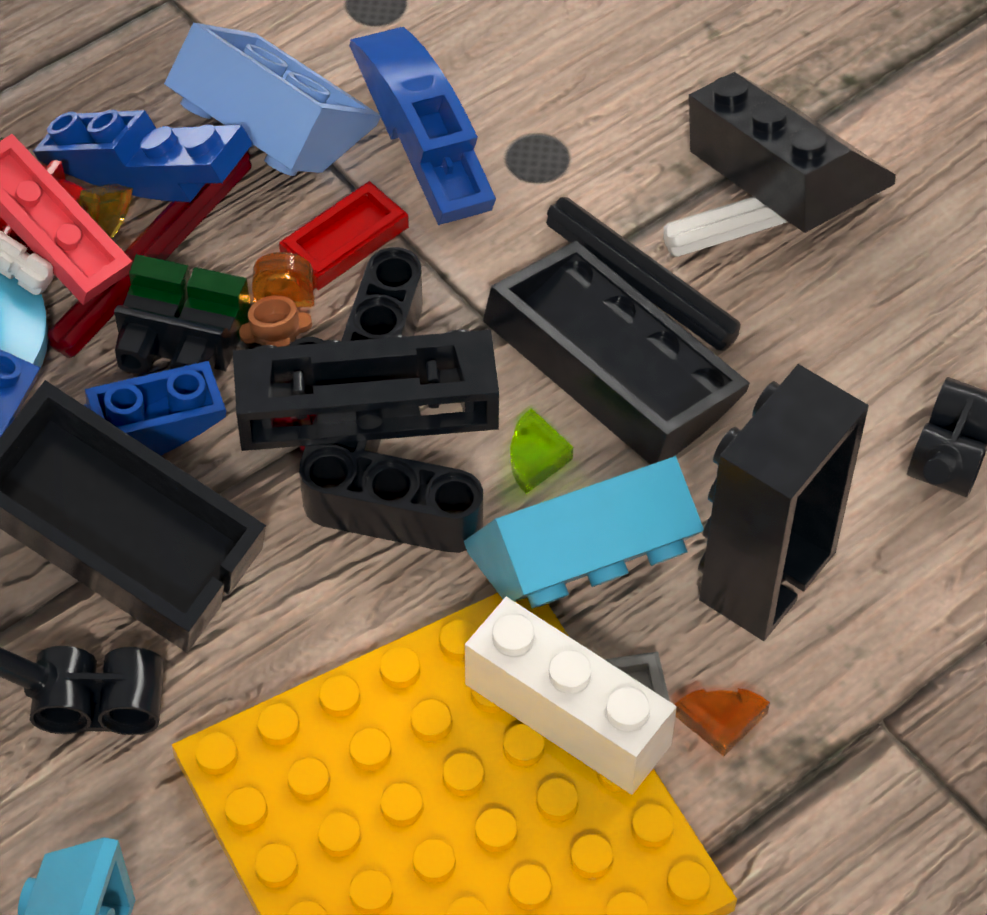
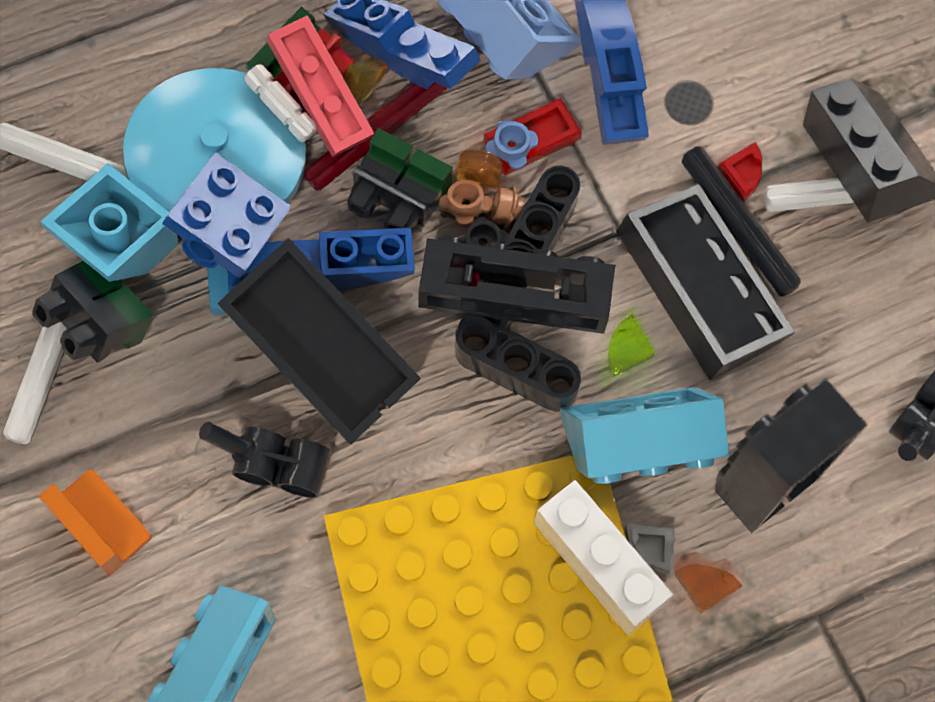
camera: 10 degrees right, 15 degrees up
(320, 227) = (515, 132): none -> medium blue plate
(329, 316) = (506, 207): none -> nougat plate
(630, 215) = (743, 170): none -> red tile

